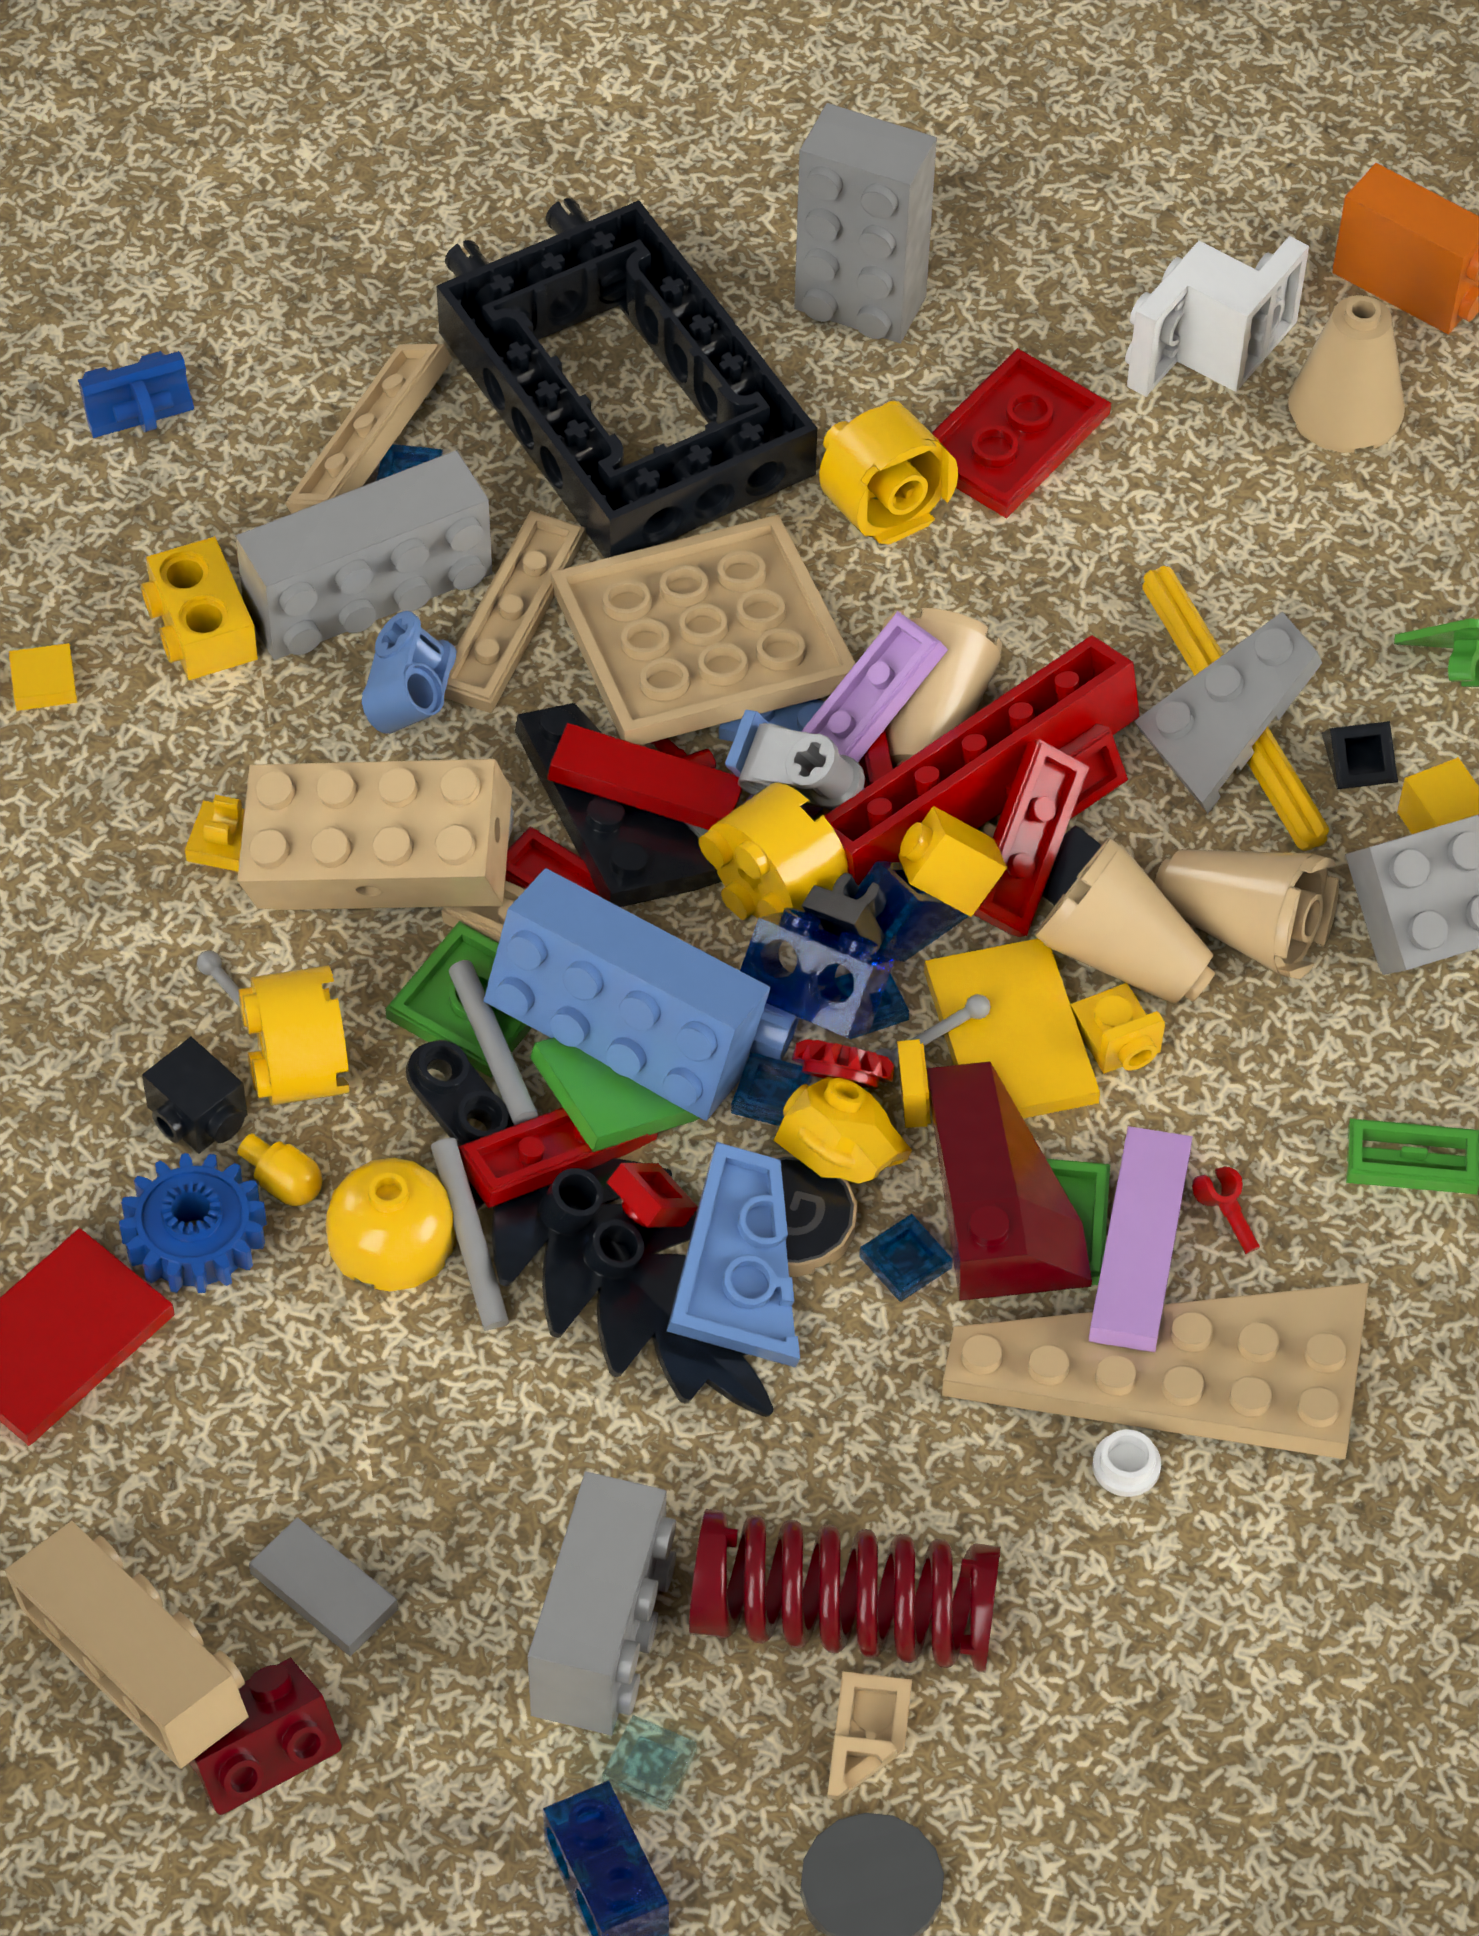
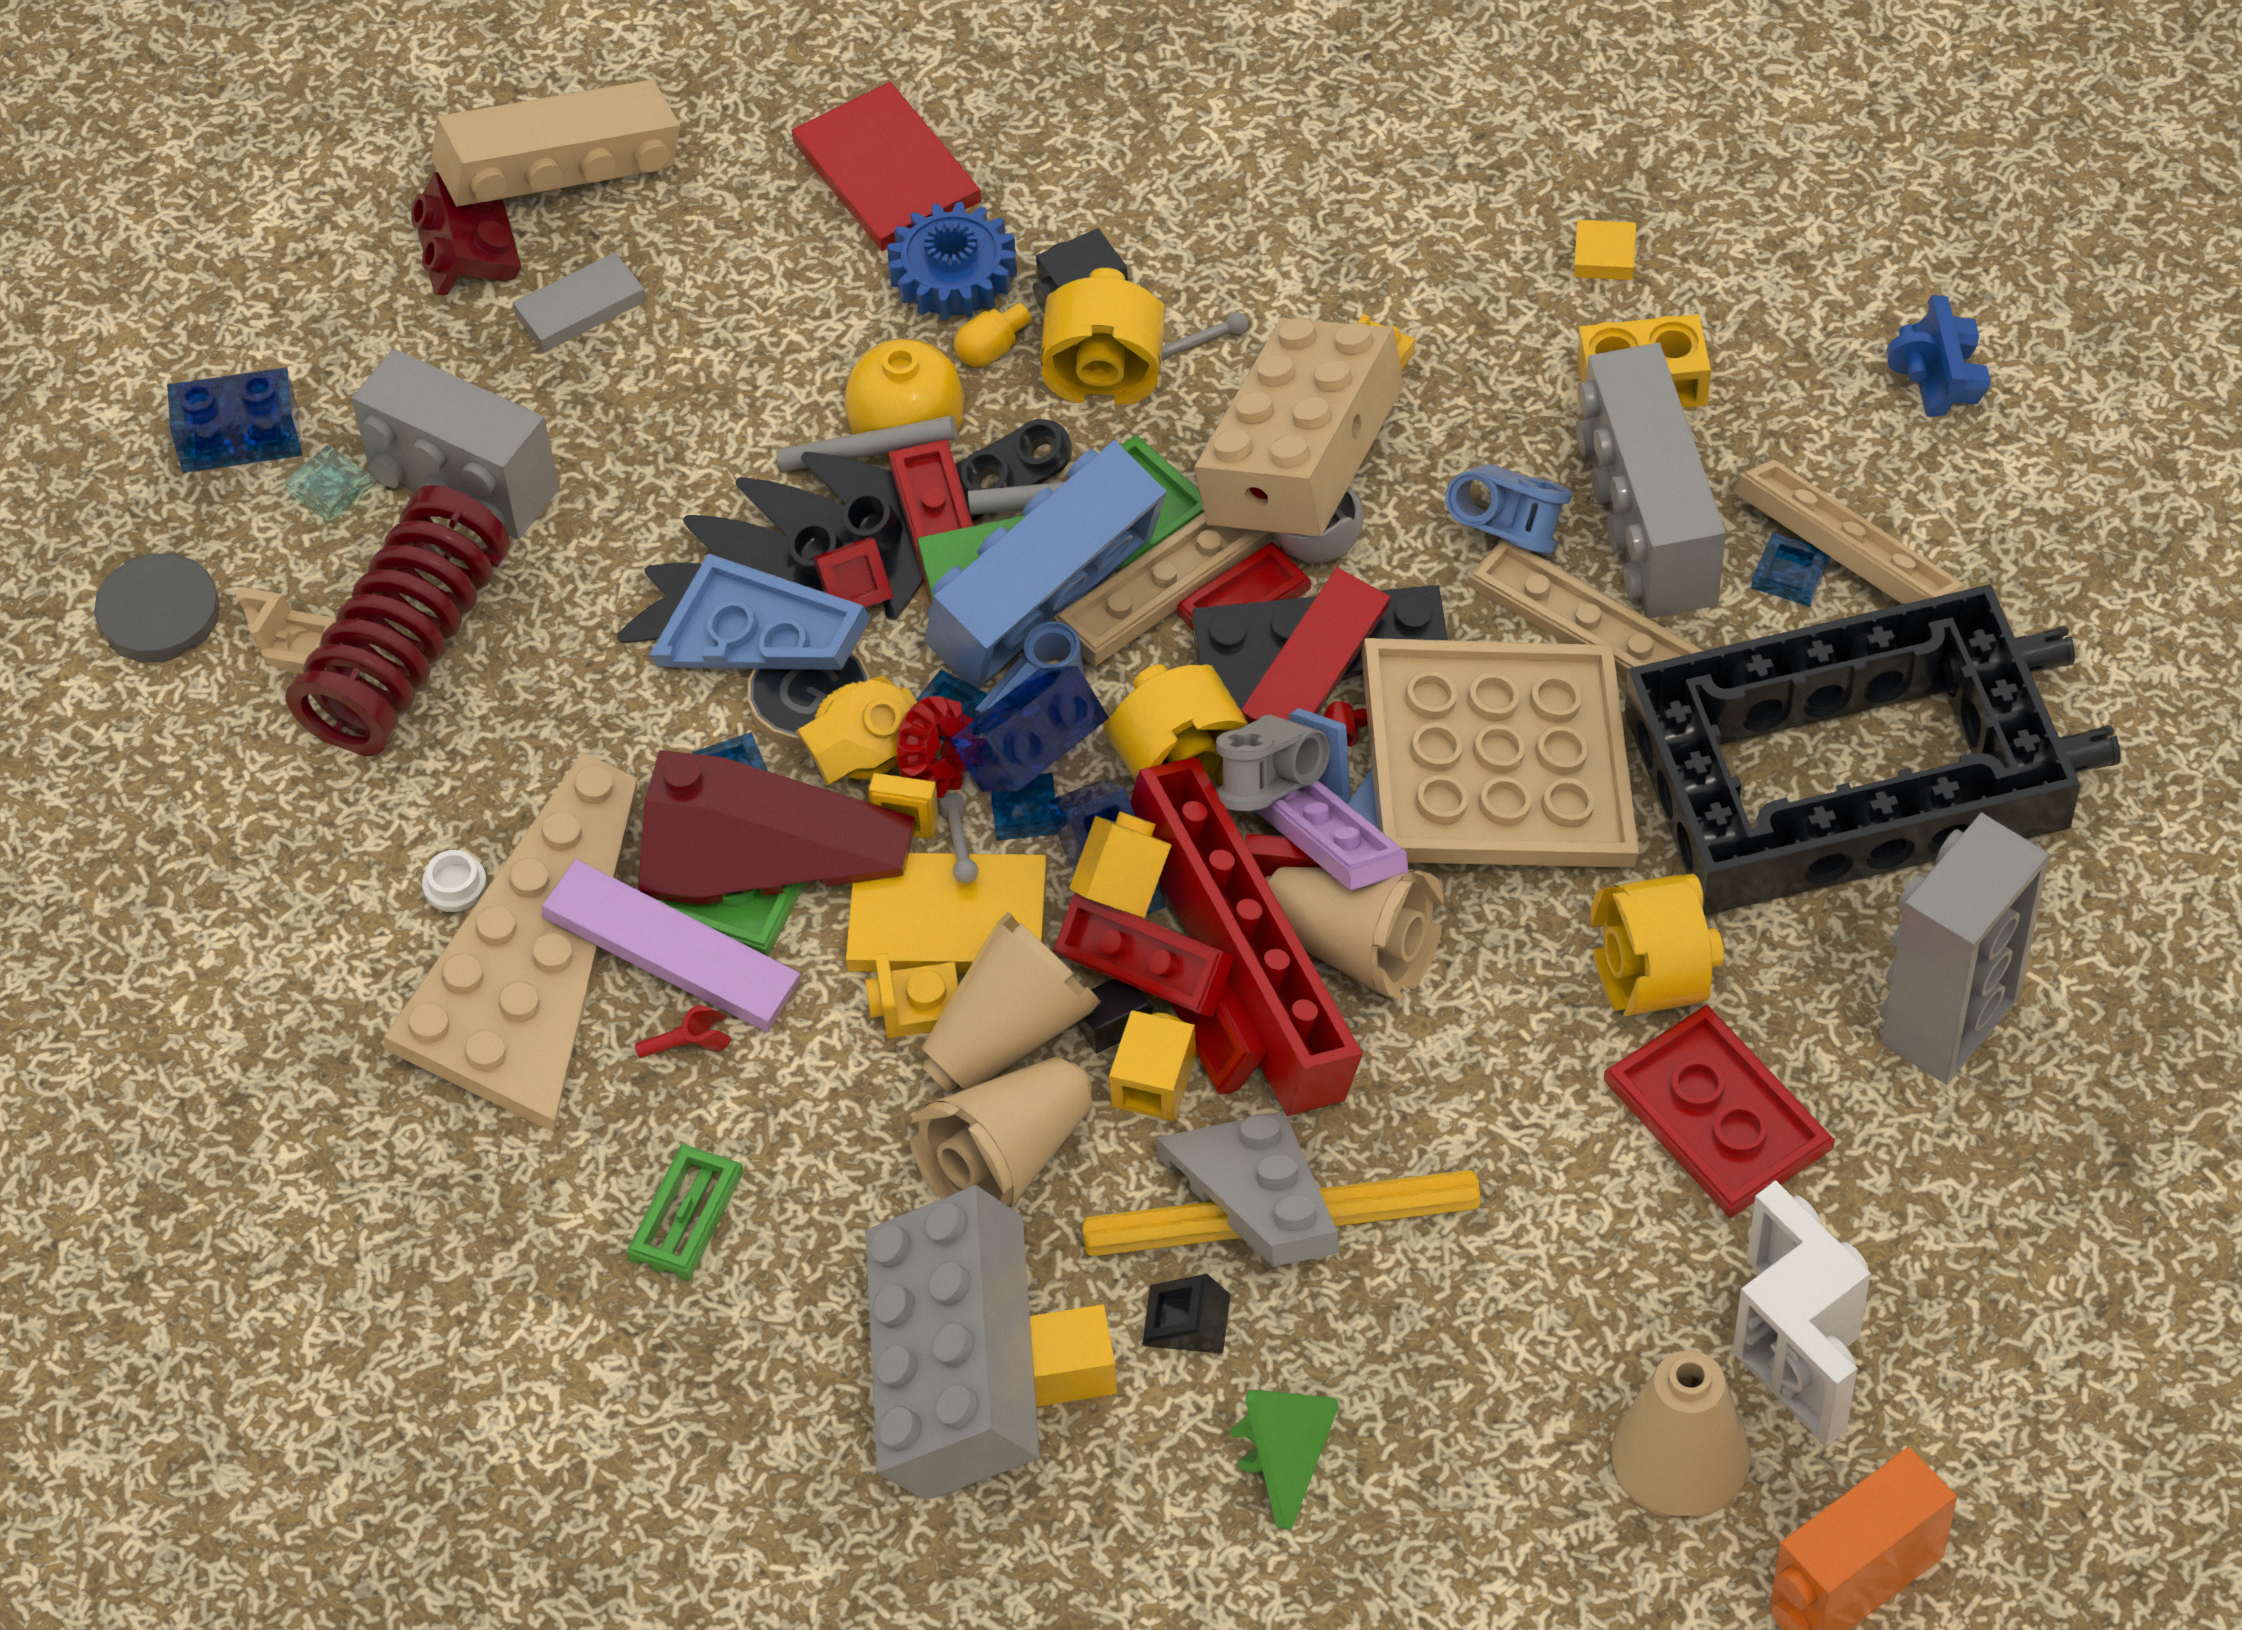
camera: 110 degrees right, 0 degrees up
(843, 913) = (1078, 759): black tile -> none
(1132, 814) = (1153, 1065): none -> yellow brick

